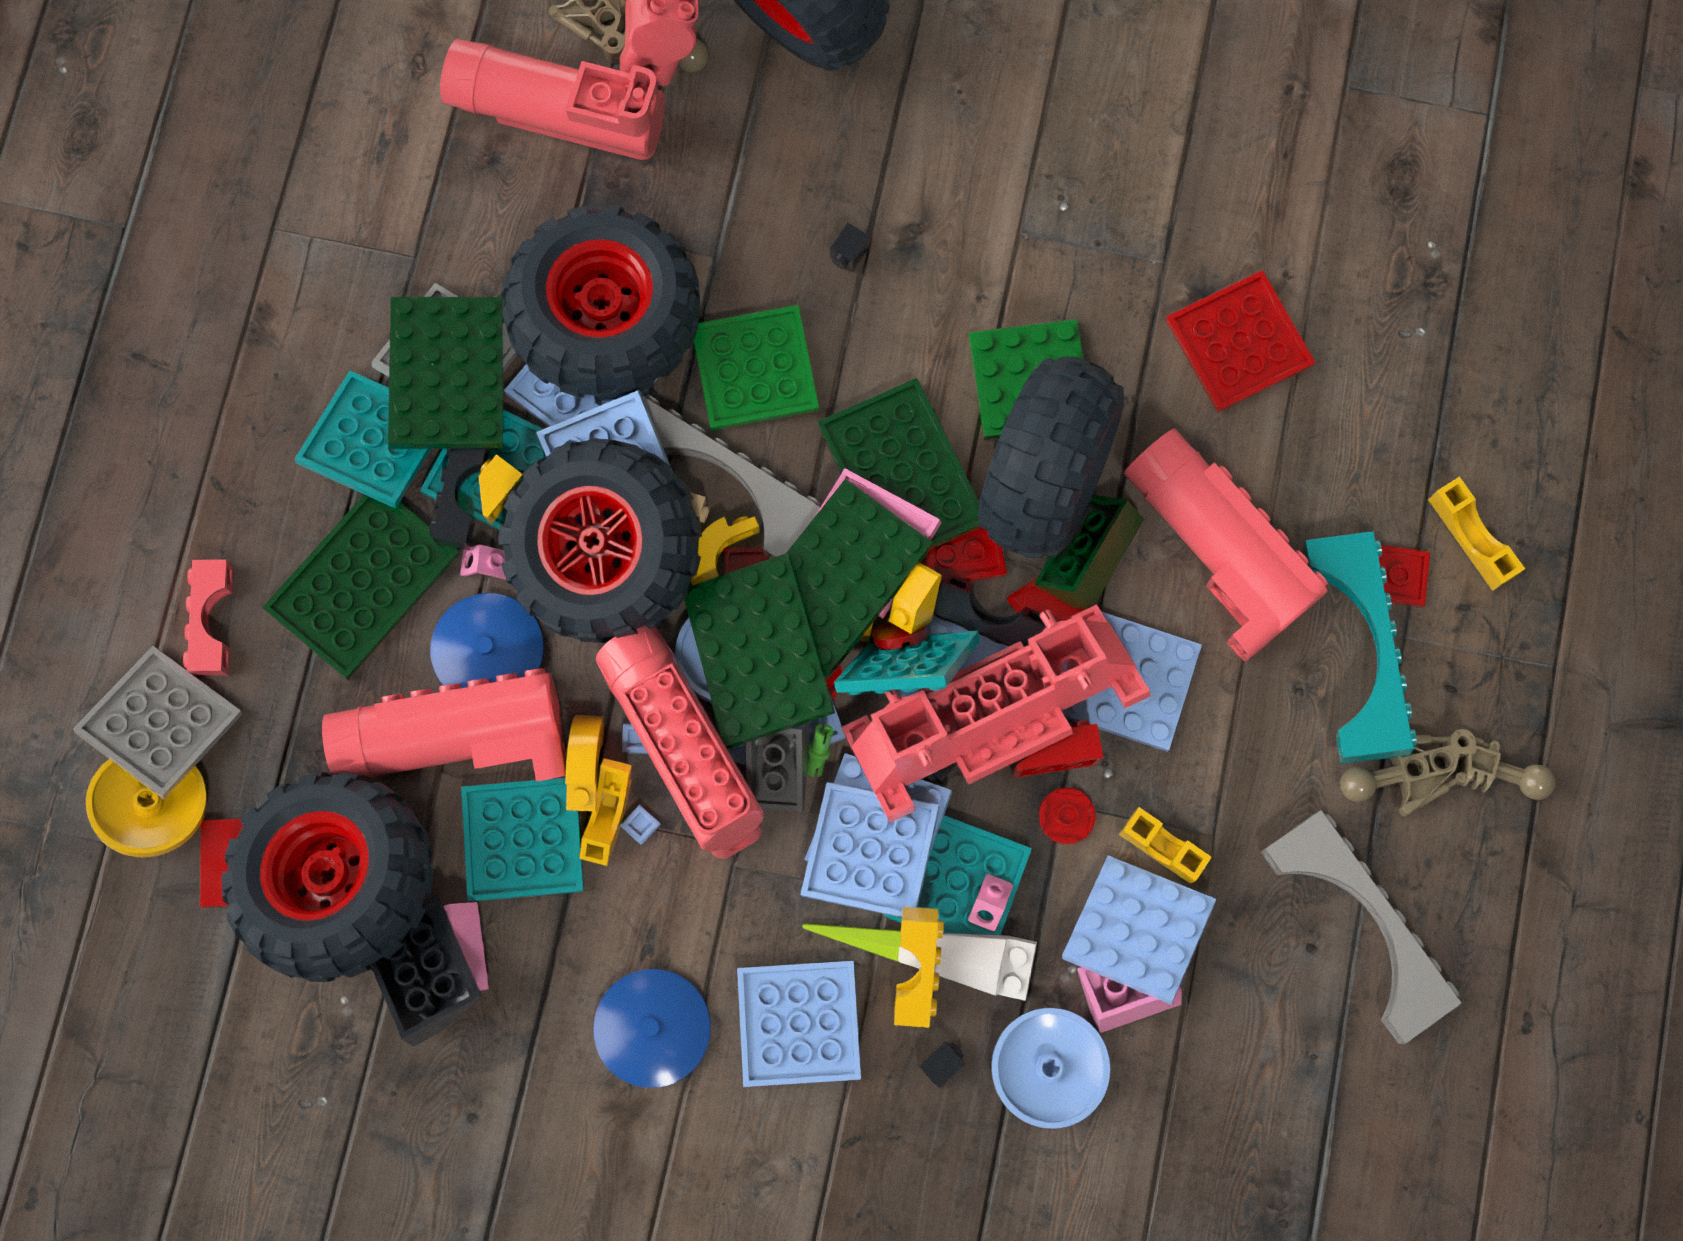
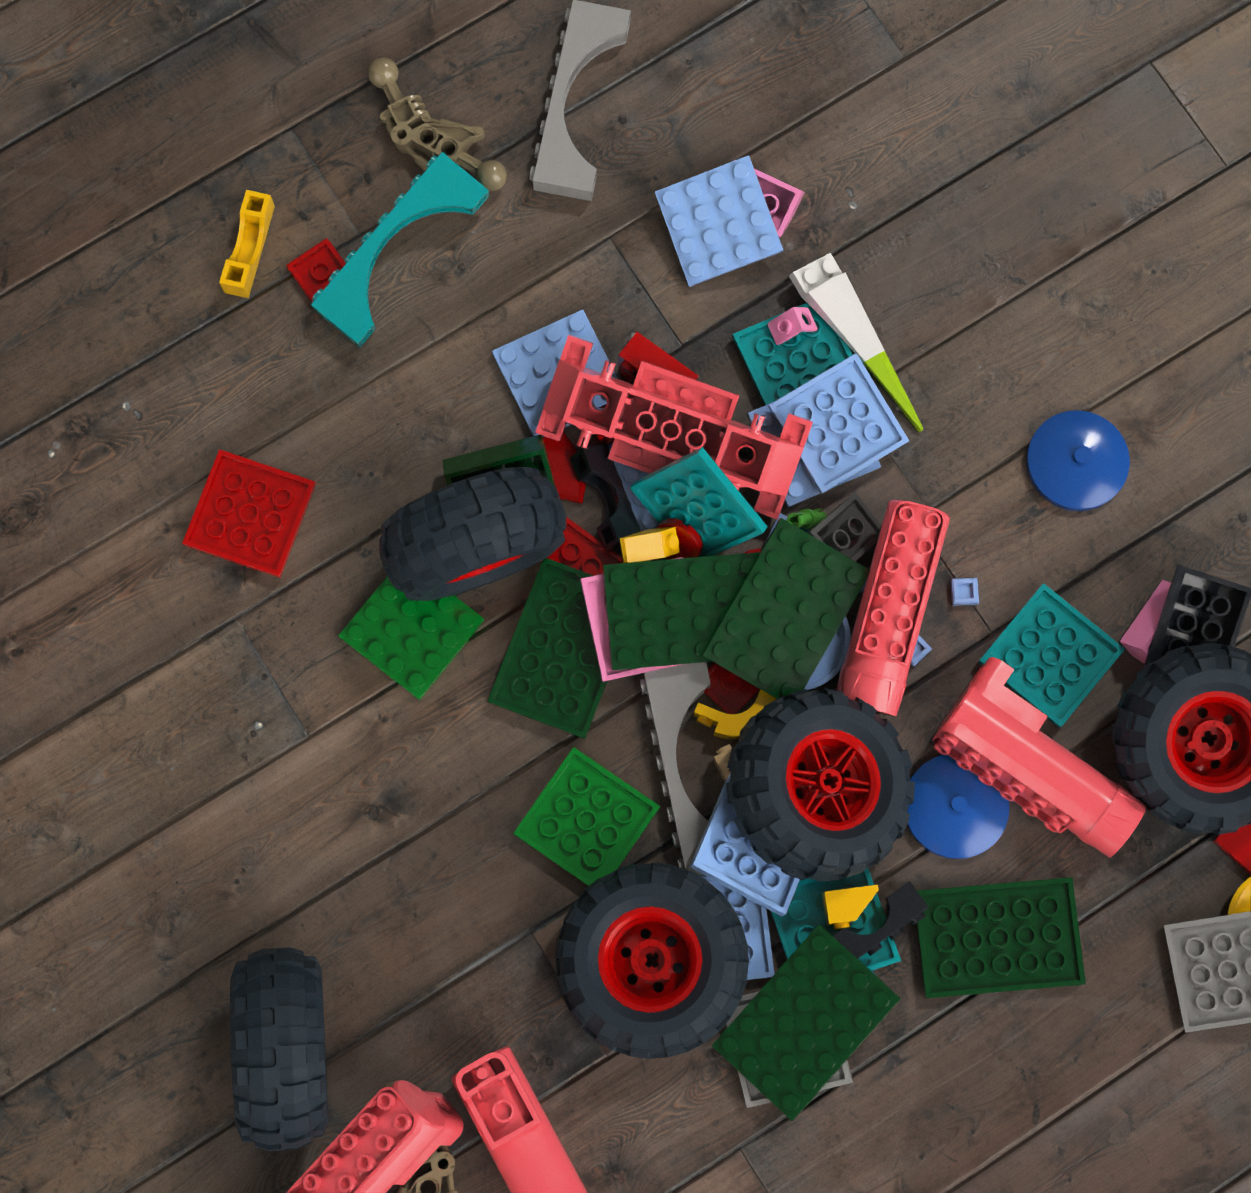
camera: 135 degrees left, 0 degrees up
(209, 583) = (1151, 990): coral arch -> none
(353, 443) = (913, 1040): teal plate -> none
(485, 561) = (902, 864): bright pink bracket -> none
(582, 762) = (964, 661): yellow arch -> none
(605, 822) = (983, 614): yellow arch -> none
(798, 1023) = (983, 374): light blue plate -> none
(849, 247) = (435, 839): black brick -> none
(914, 997) = (863, 337): yellow arch -> none
(943, 1064) = (919, 266): black brick -> none
(1050, 1068) = (856, 199): light blue dish -> none
(1067, 816) = (688, 334): red tile -> none
(1176, 855) = (649, 254): yellow arch -> none
(1252, 564) = (409, 367): coral piece -> none

